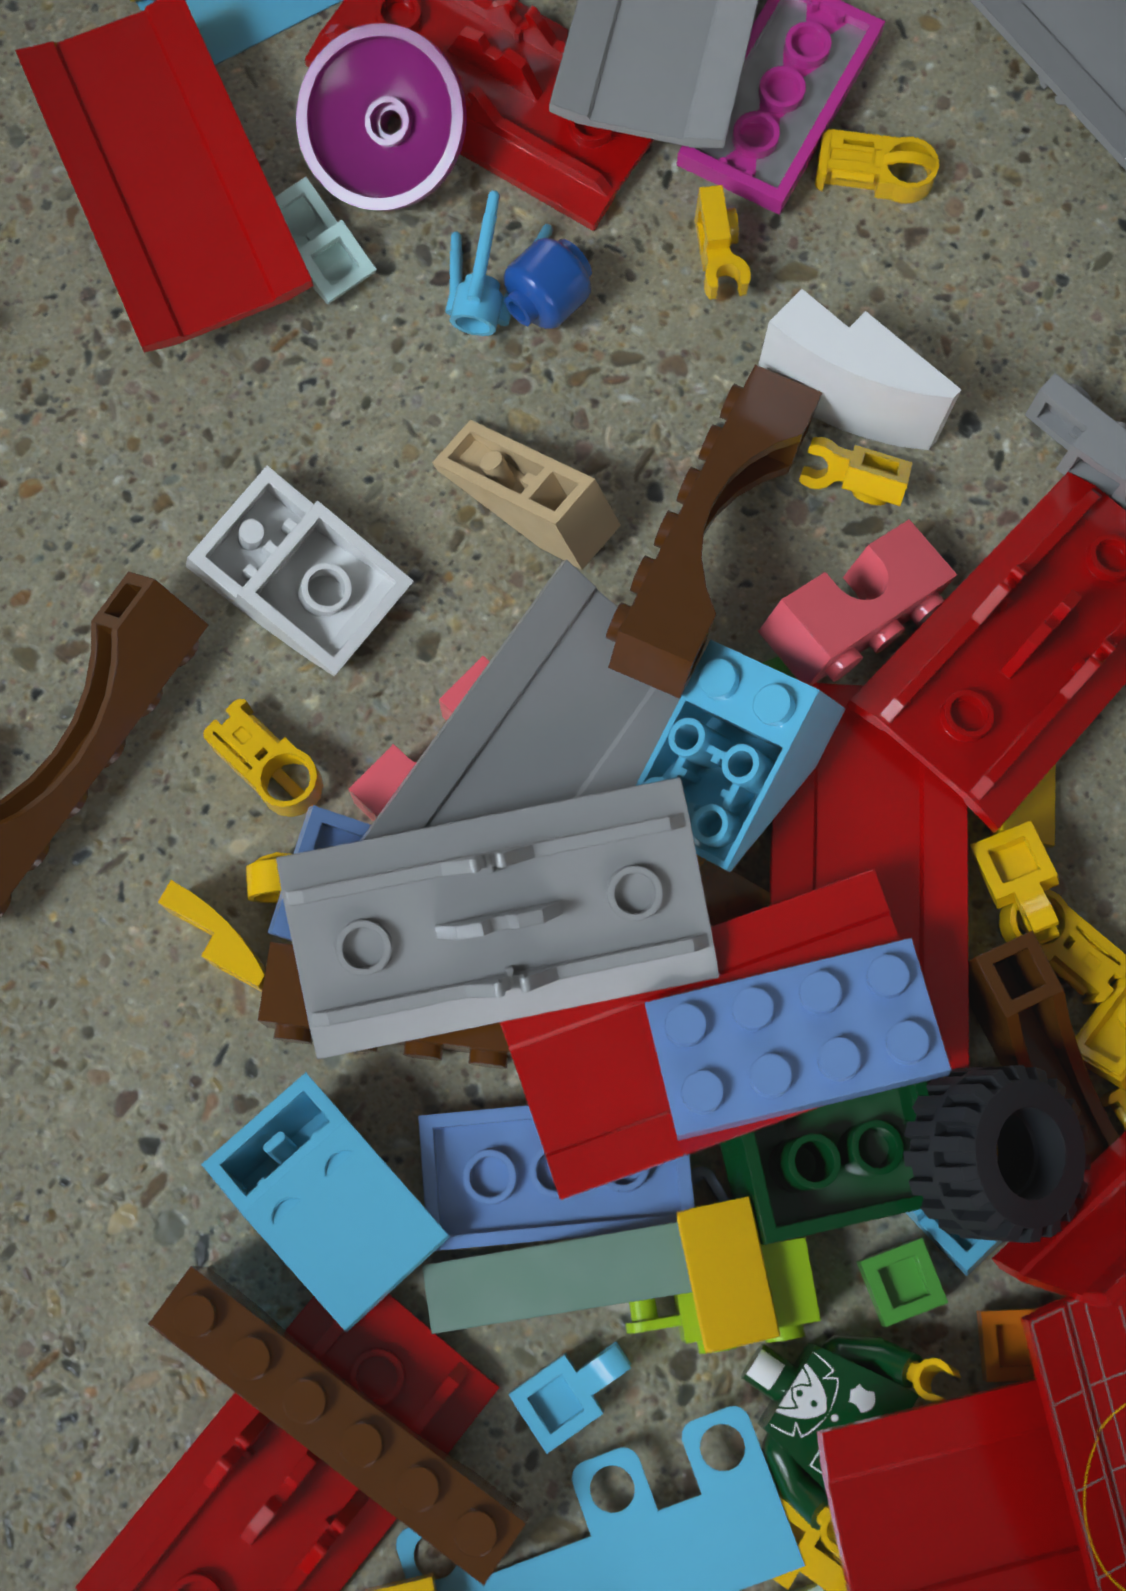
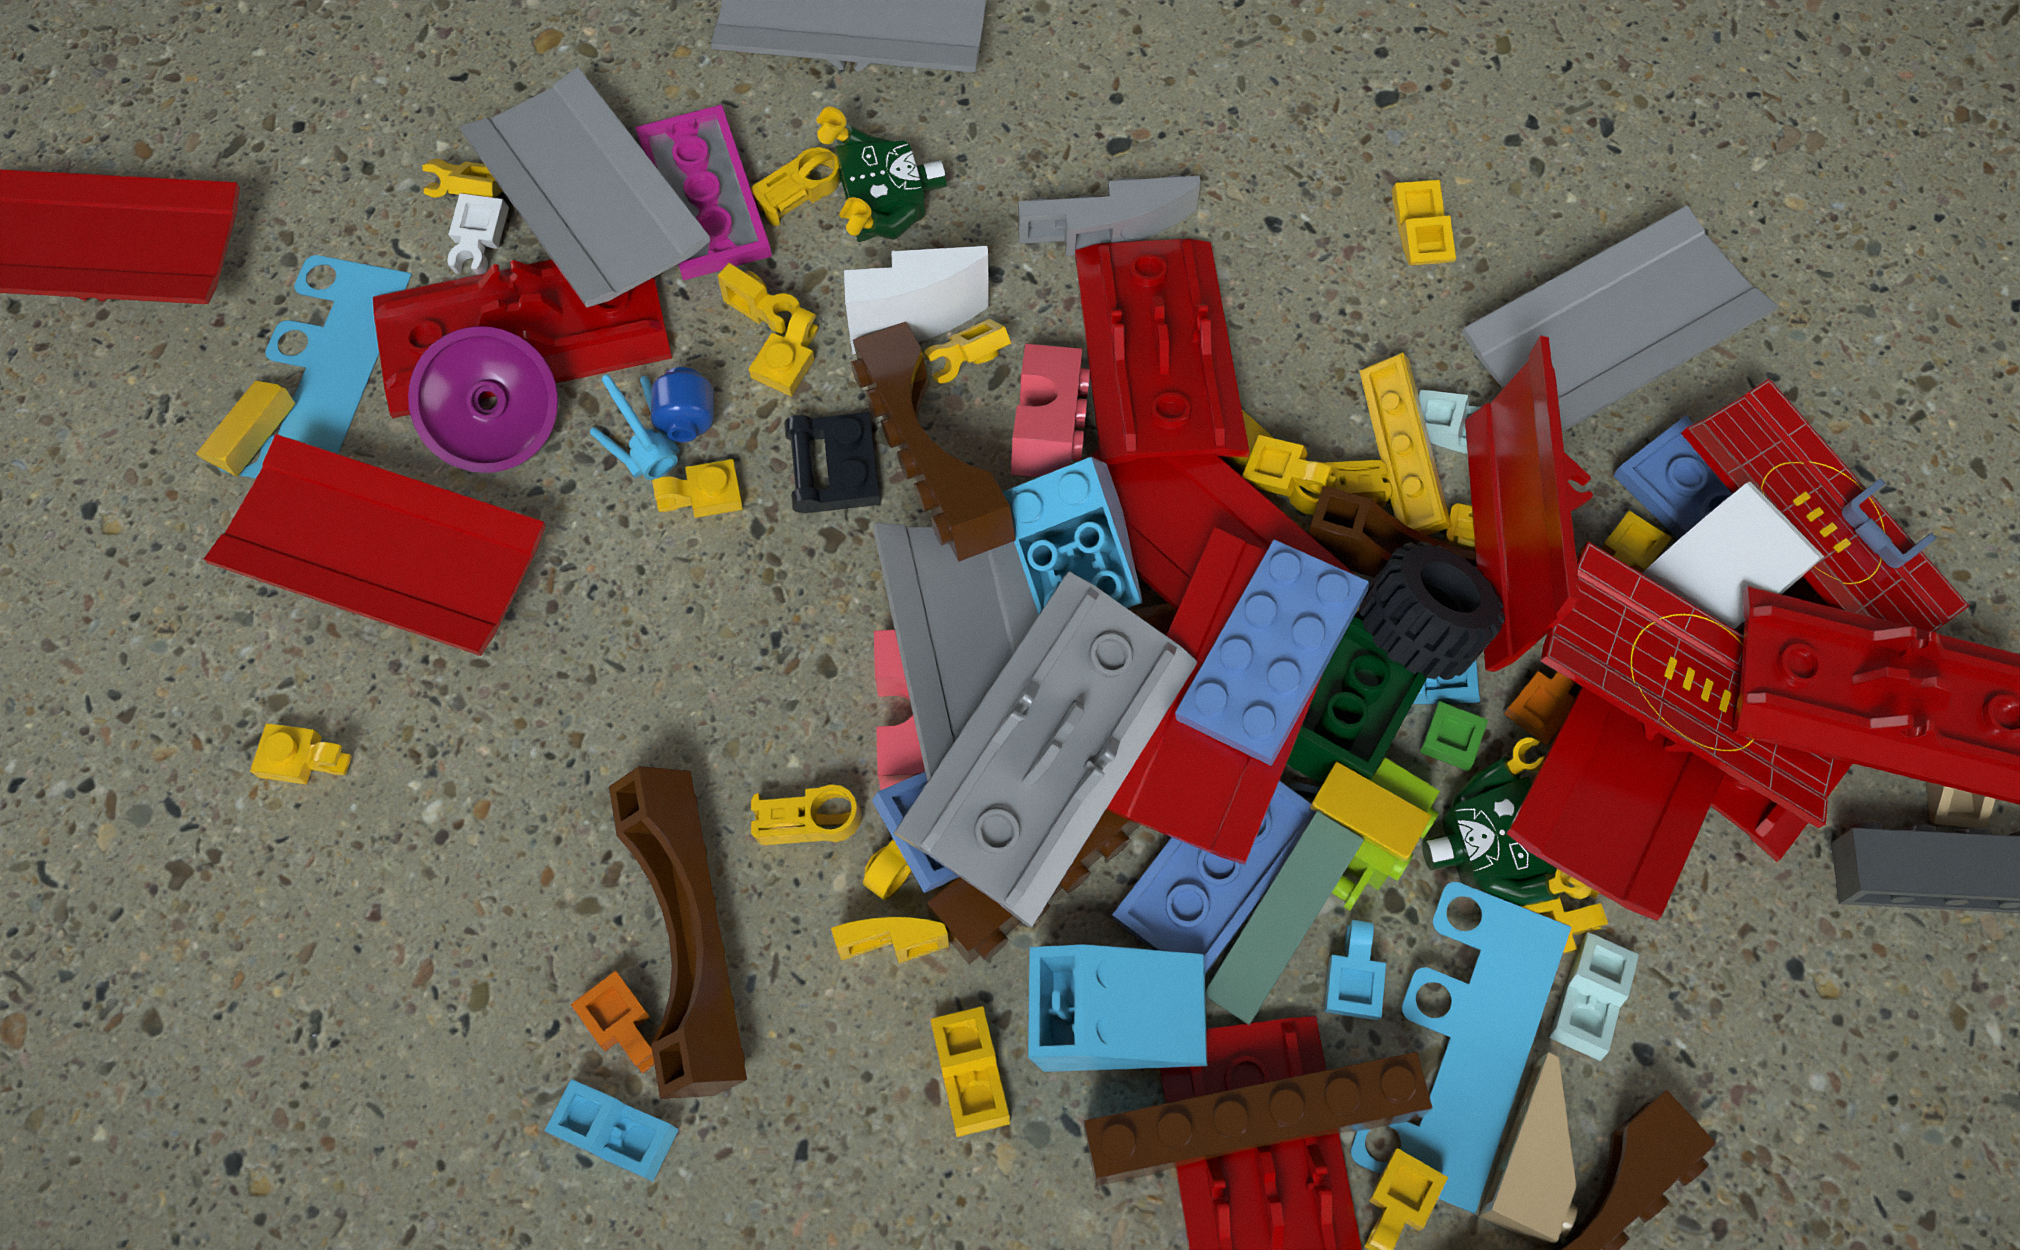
camera: 45 degrees left, 10 degrees down
(166, 1119) = (970, 1071): none -> yellow slope
(298, 571) = (708, 694): white slope -> none
(325, 245) = (526, 498): light aqua slope -> none
(491, 384) = (708, 489): none -> yellow plate
(531, 492) = (797, 524): tan slope -> none
(647, 469) = (848, 458): none -> black plate
(686, 327) = (786, 359): none -> yellow plate
(950, 229) = (878, 179): none -> dark green torso

